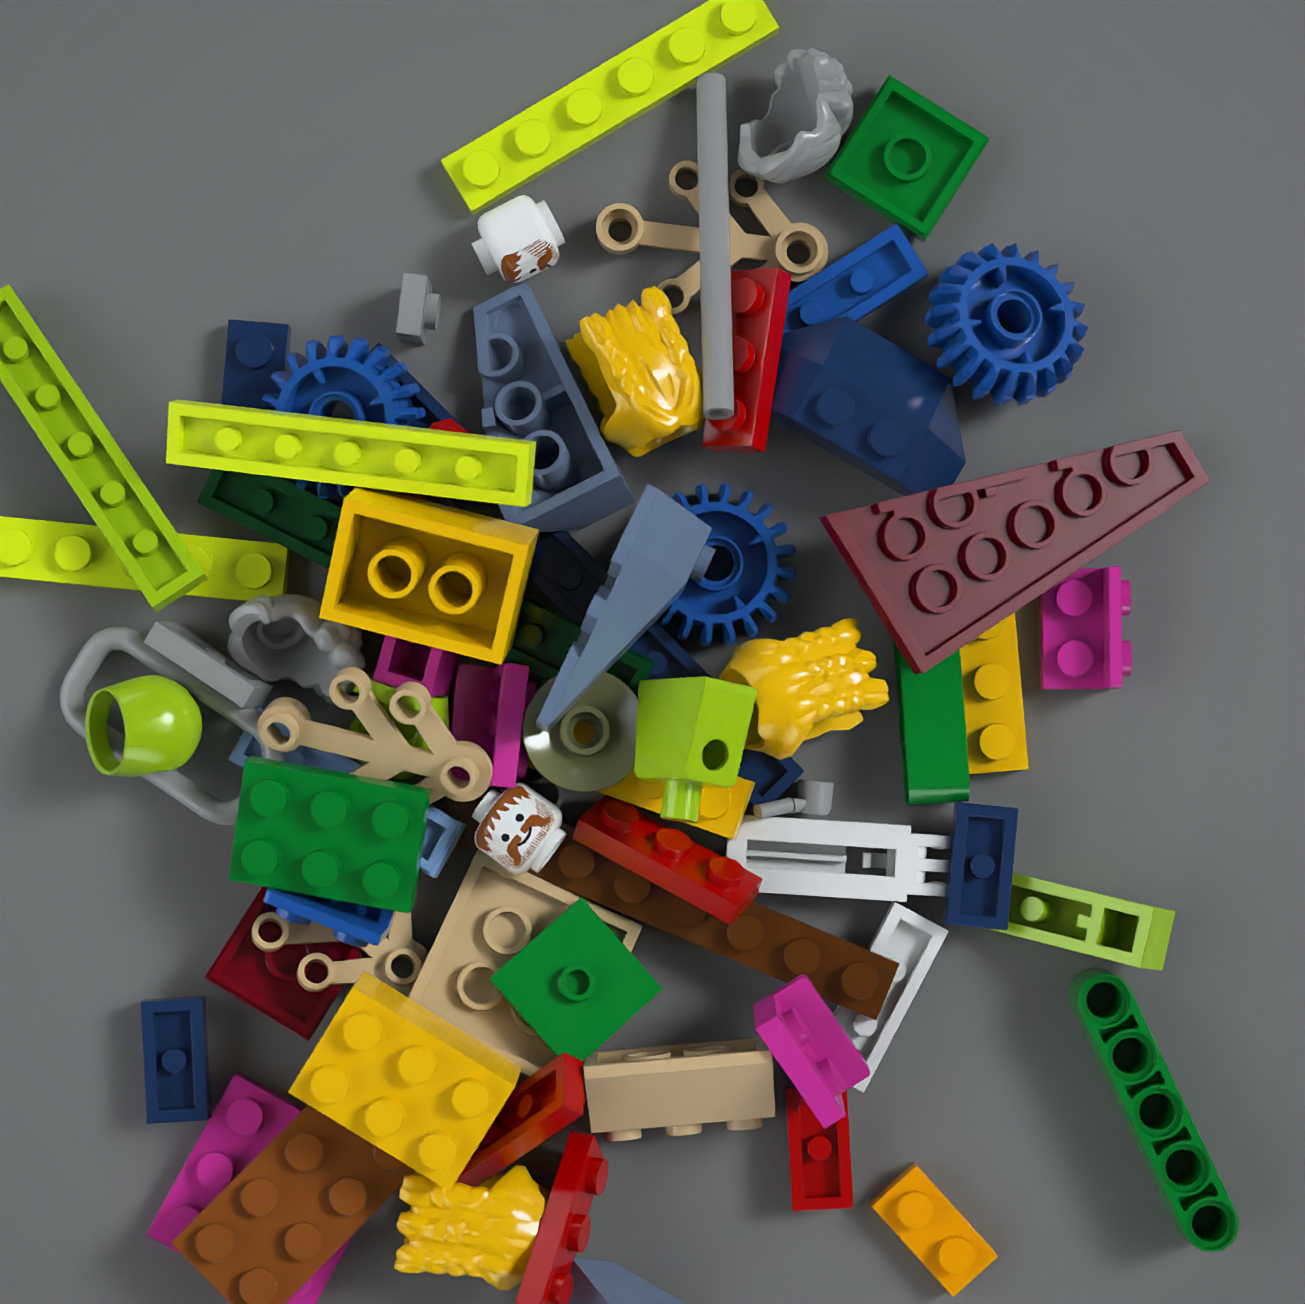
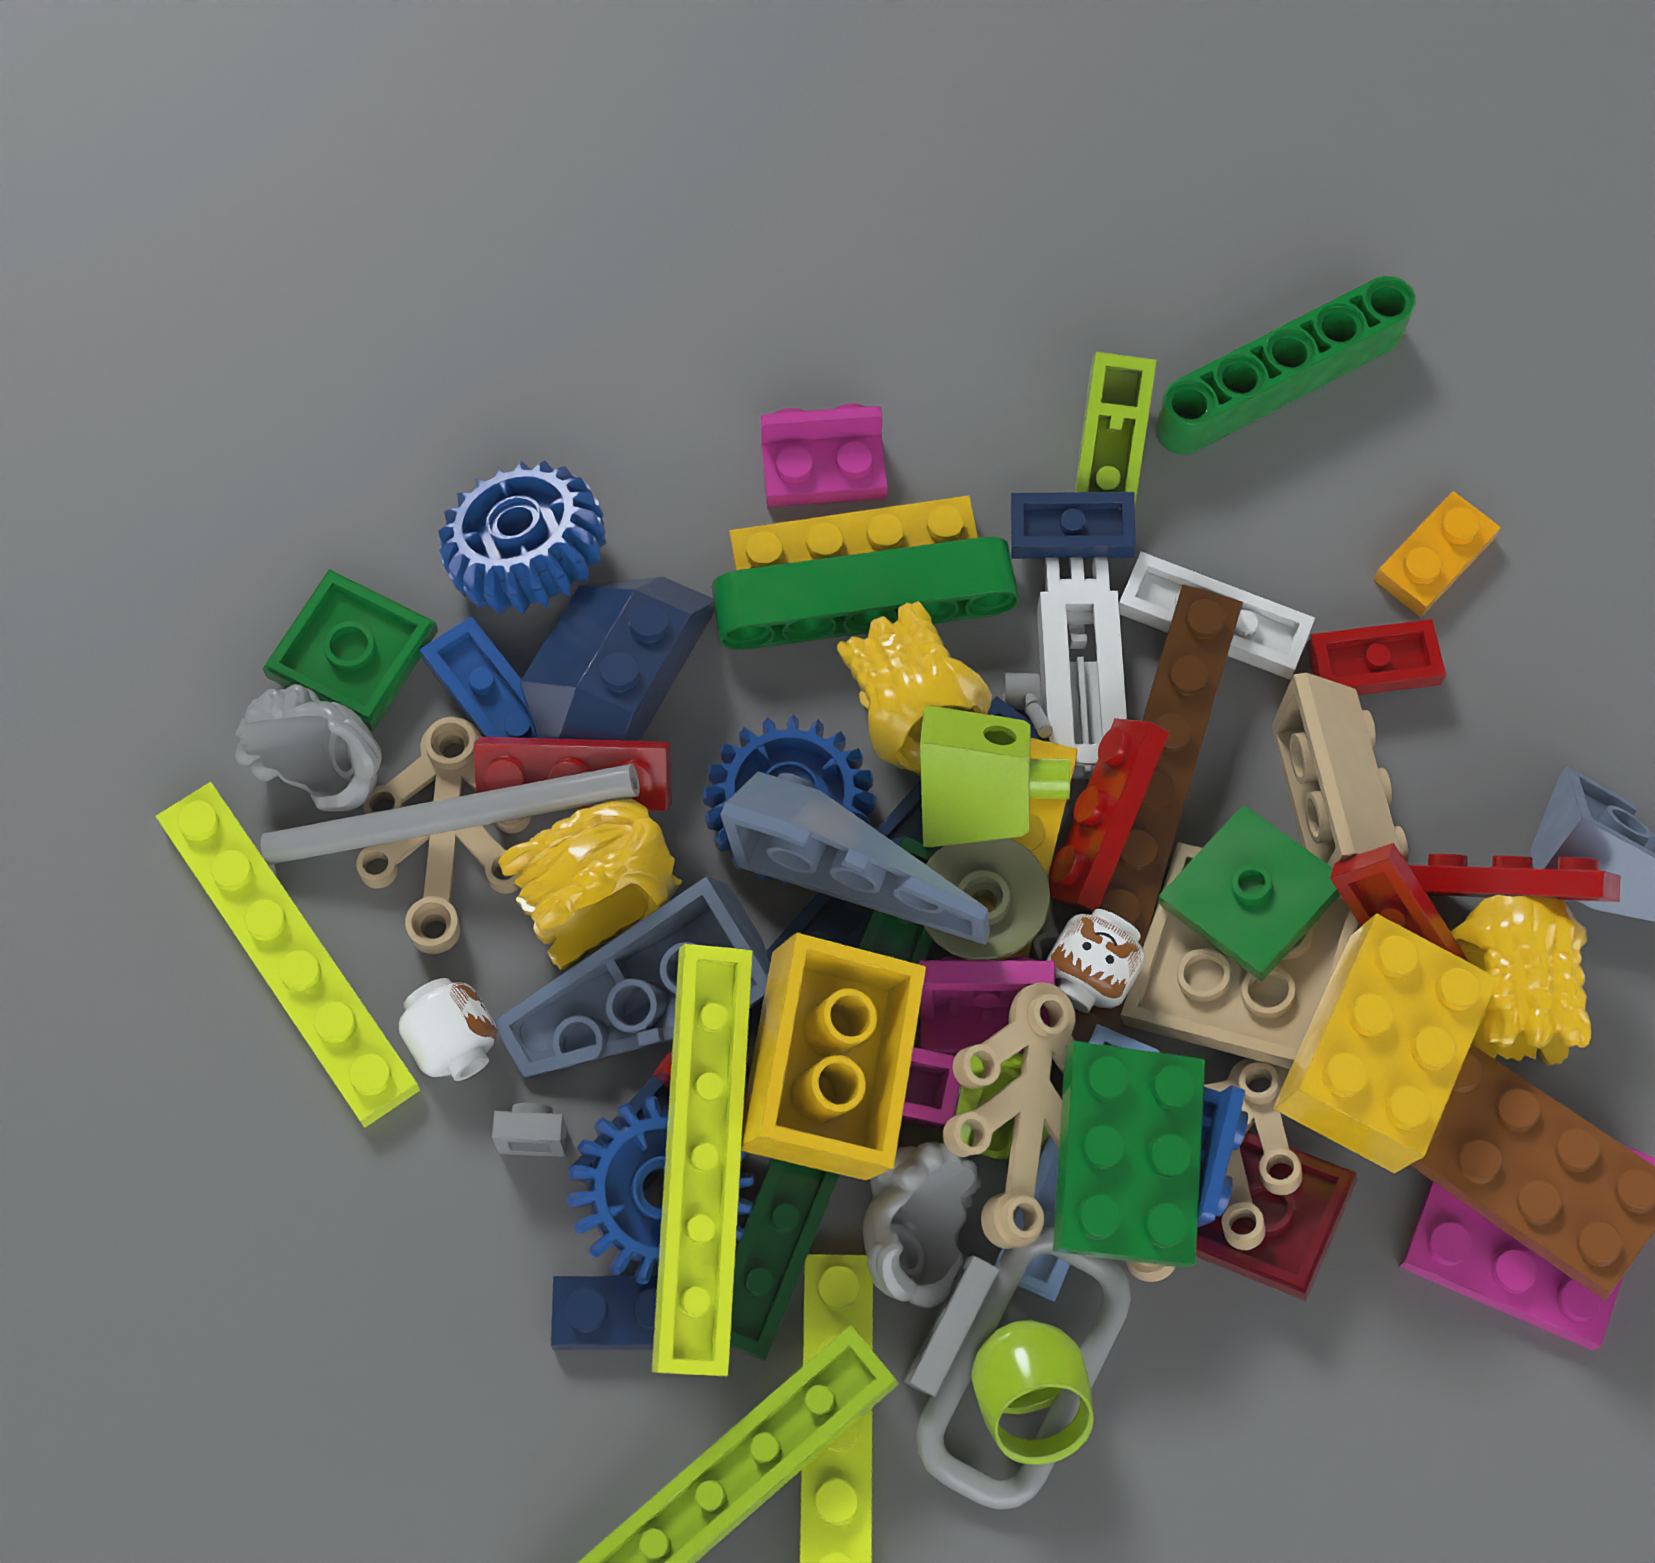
camera: 95 degrees left, 20 degrees down
(176, 1059) = (1400, 1329): dark blue plate -> none
(810, 1046) = (1283, 647): dark pink bracket -> none
(982, 548) = (752, 532): dark red wing -> none

